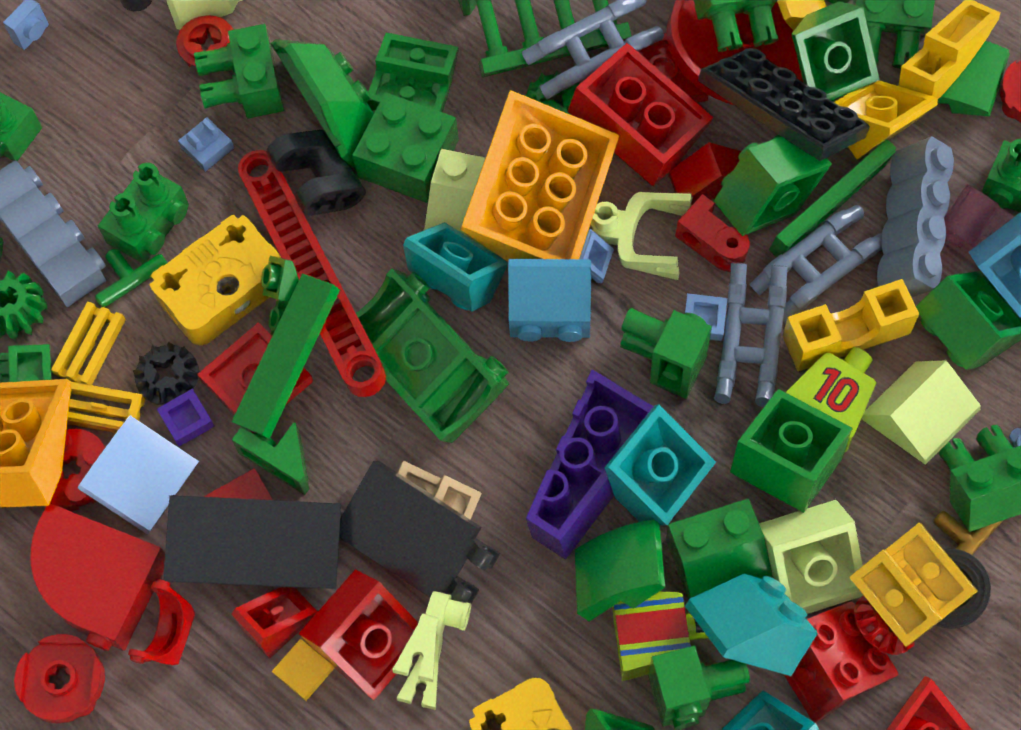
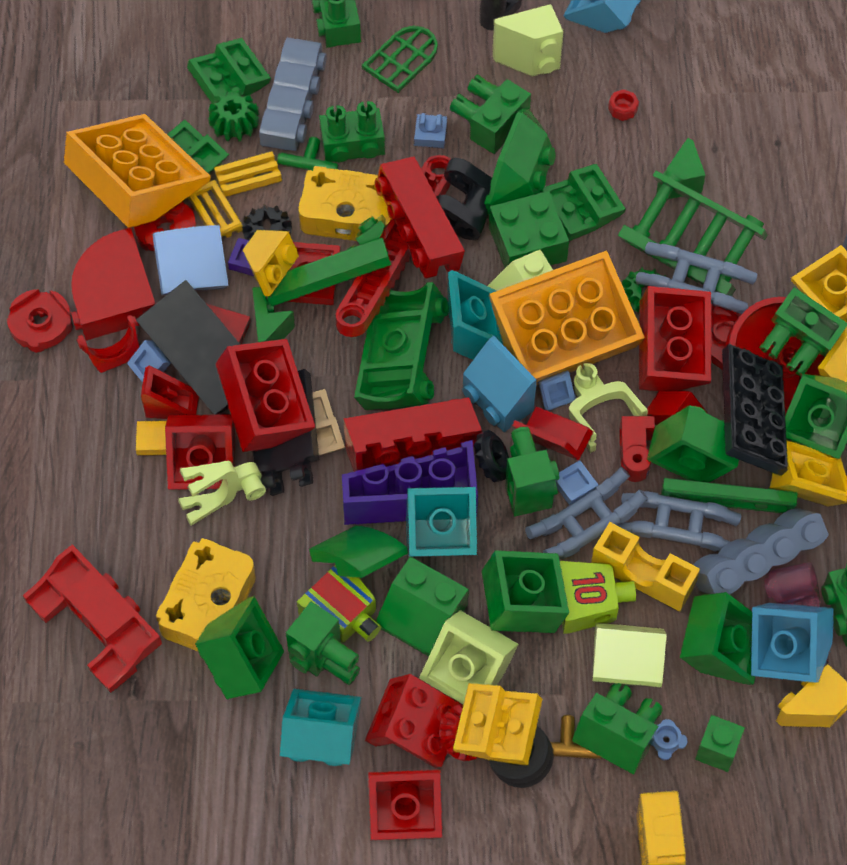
camera: 45 degrees right, 5 degrees down
(90, 115) = (402, 67): none -> green window
(197, 31) = (498, 68): red gear -> none
(214, 607) = (148, 355): none -> medium blue plate
(218, 396) = (270, 257): none -> yellow slope
(309, 223) = (419, 217): none -> red brick
(370, 521) = (264, 394): none -> red slope
(529, 423) = (409, 432): none -> red wedge
(617, 366) = (491, 455): none -> black gear
(642, 290) = (557, 433): none -> red panel
(754, 623) = (386, 647): teal slope -> none

